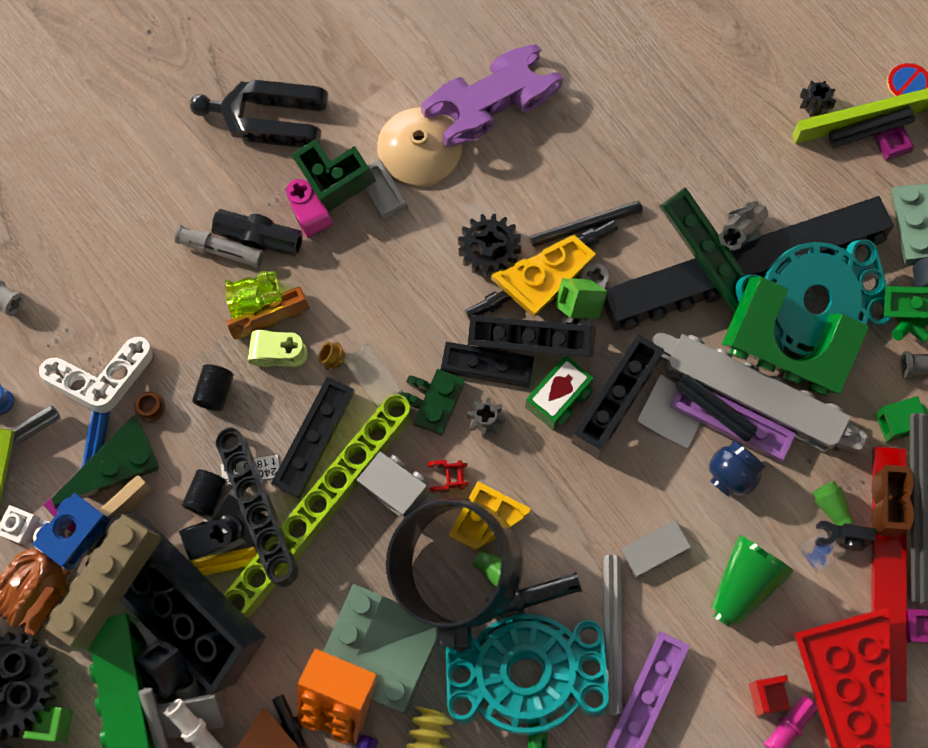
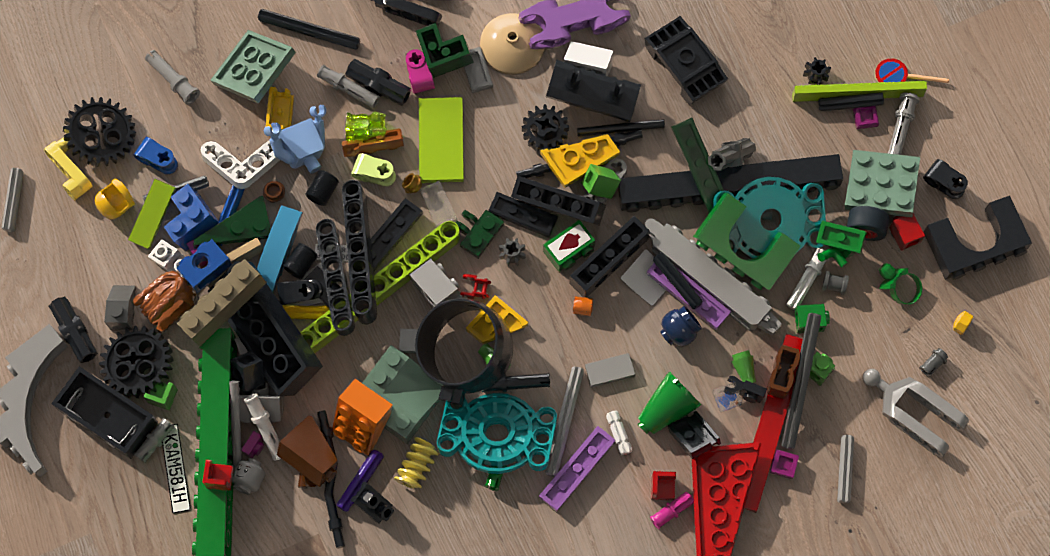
camera: 10 degrees right, 0 degrees up
(47, 467) = (194, 217): none -> blue brick
(87, 247) = (253, 66): none -> sand green plate
(135, 300) = (279, 108): none -> yellow hinge
(152, 184) = (309, 29): none -> black axle
(169, 334) = (301, 142): none -> light blue torso
(170, 479) = (279, 245): none -> dark azure slope
(286, 475) = (362, 259): none -> black beam
(356, 290) = (441, 140): none -> lime tile
(374, 569) = (407, 340): none -> light grey tile
(524, 149) = (589, 57): none -> white brick
(541, 183) = (593, 91): none -> black piece
(597, 469) = (583, 306): none -> orange hose
(649, 117) = (686, 59): none -> black plate
(690, 633) = (619, 432): none -> white axle
(795, 615) = (694, 434): none -> black plate
(881, 369) = (811, 272): none -> white axle

